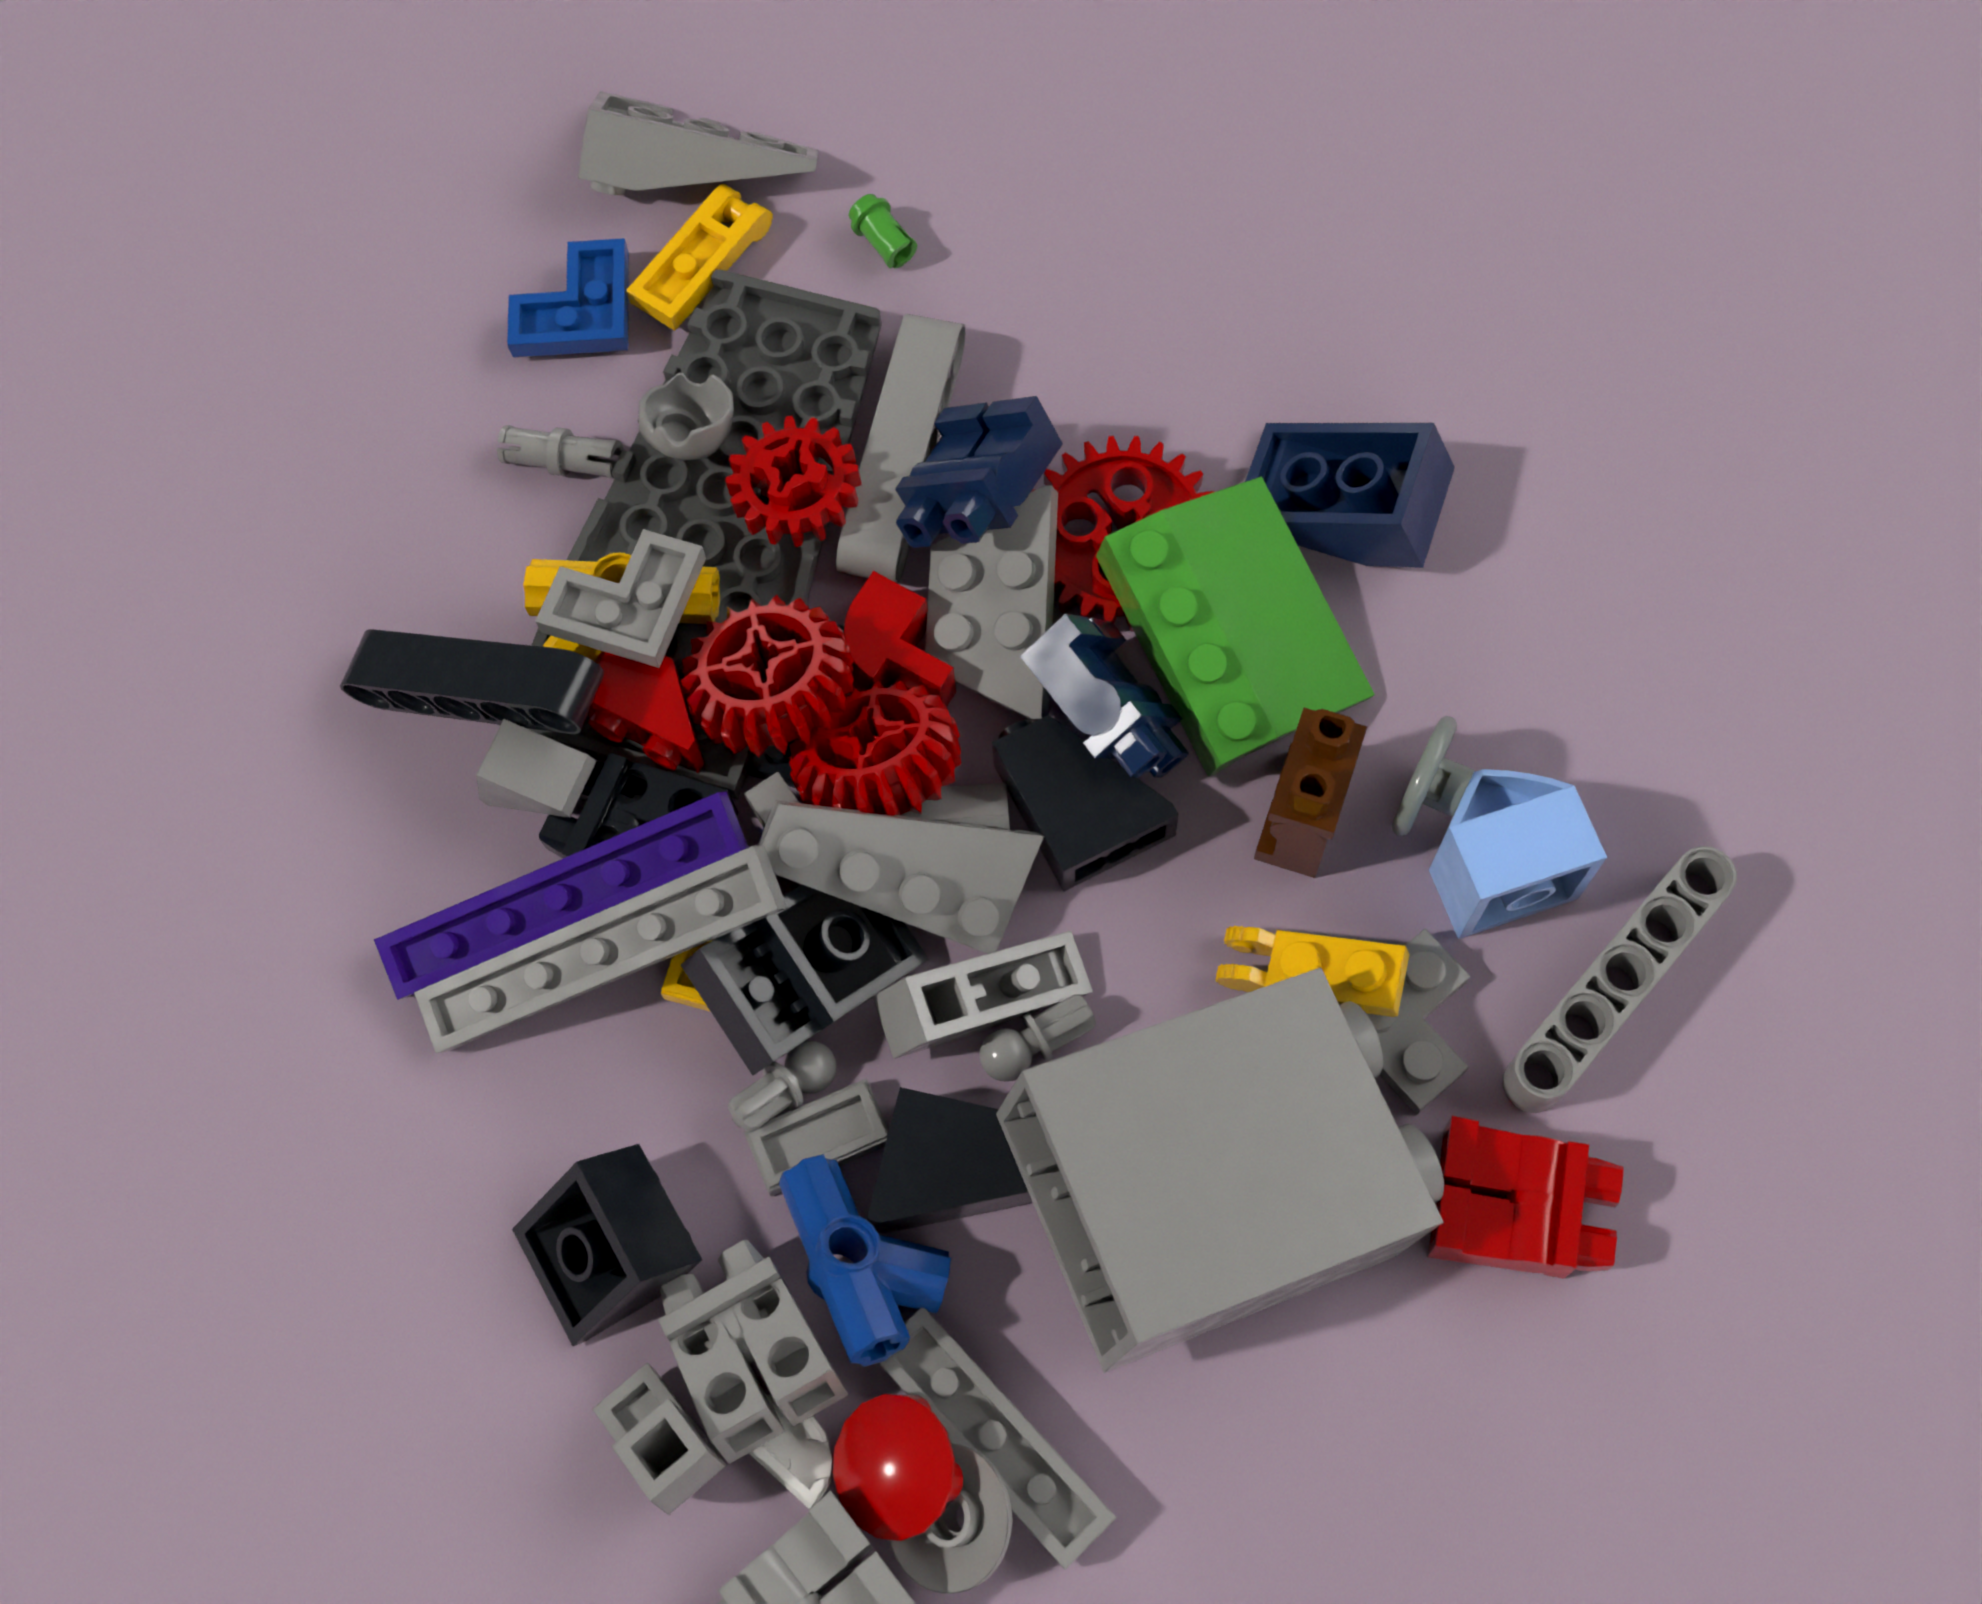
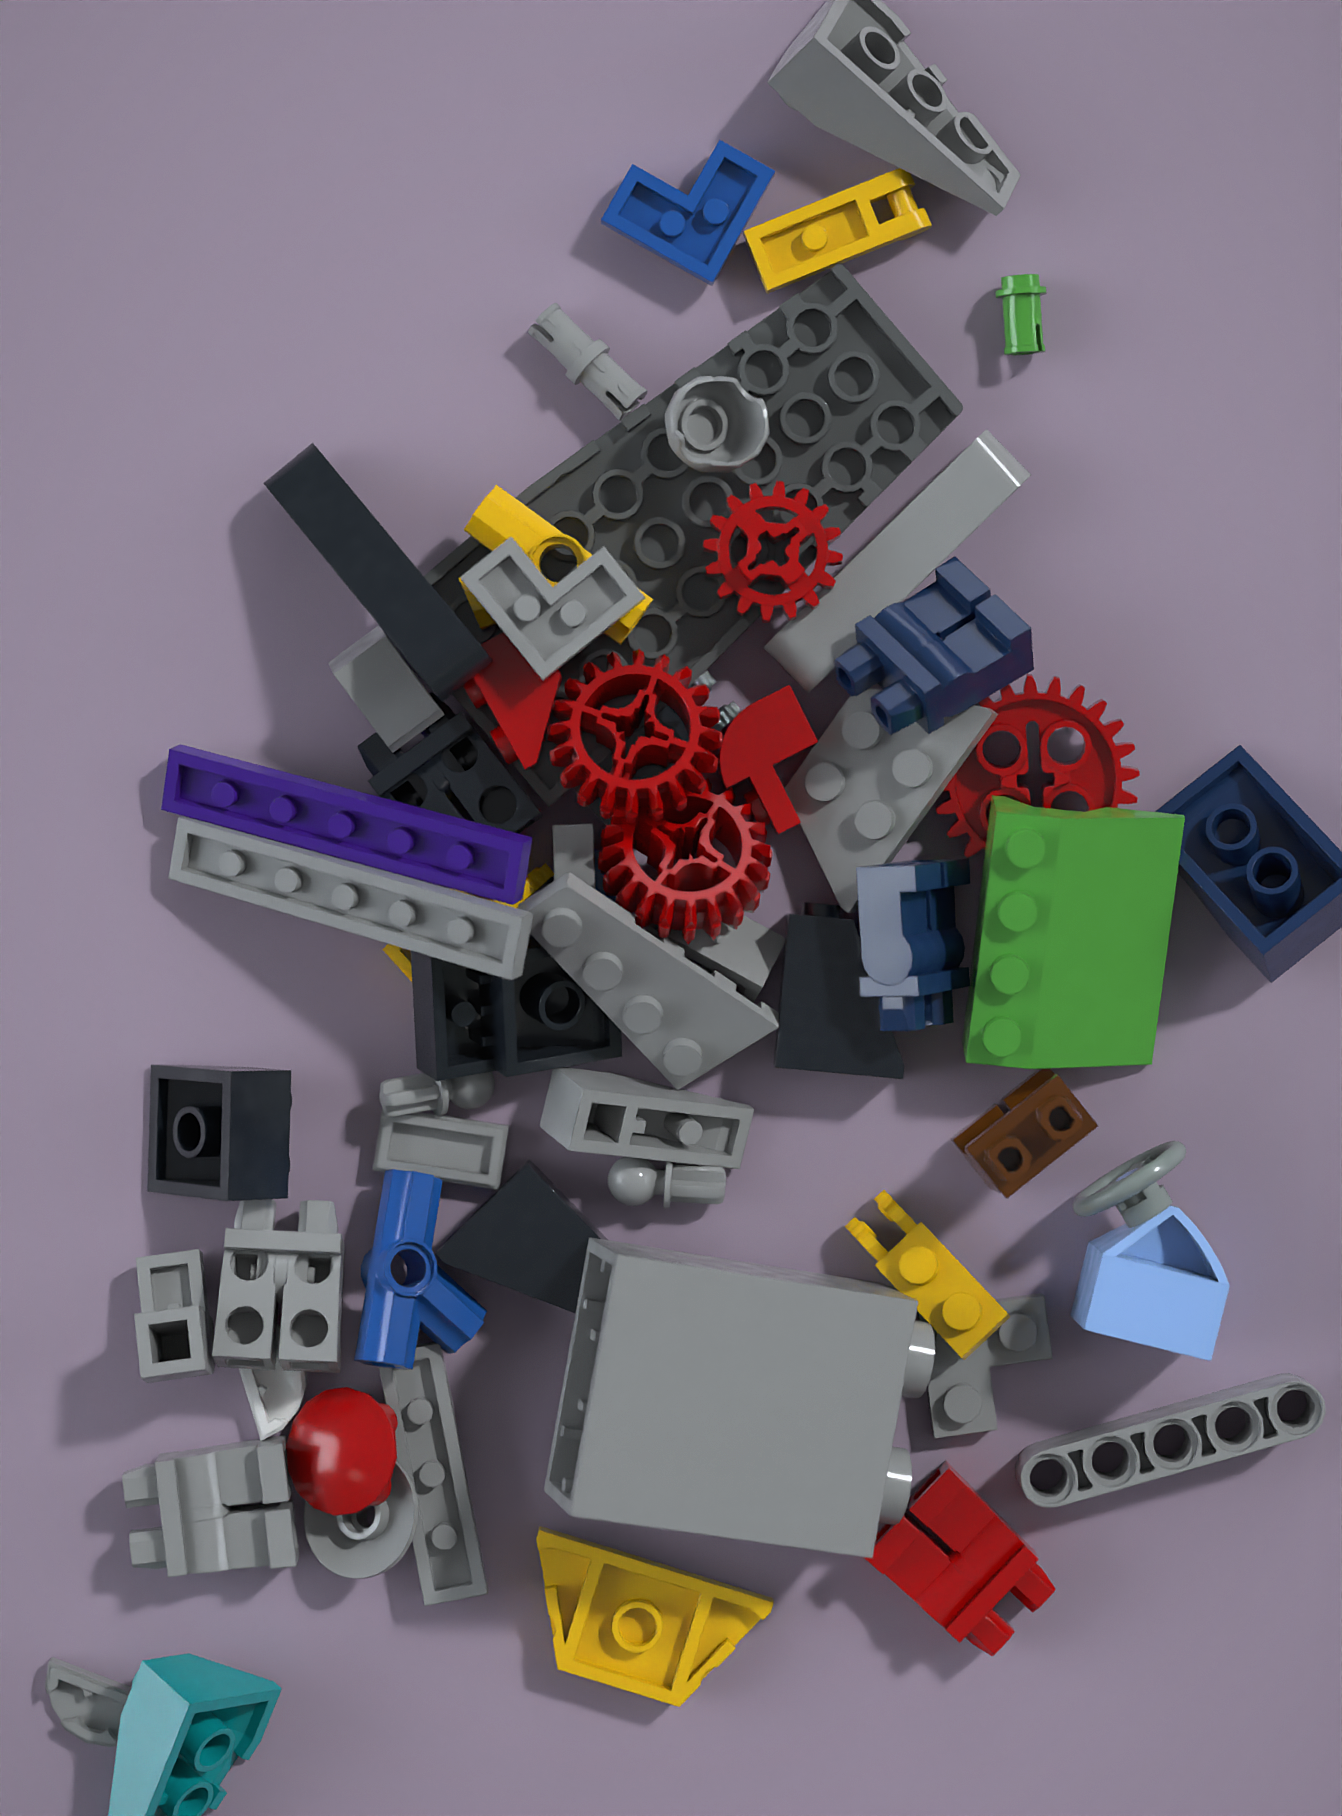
camera: 30 degrees right, 20 degrees up
(1273, 1450) = (638, 1618): none -> yellow wing

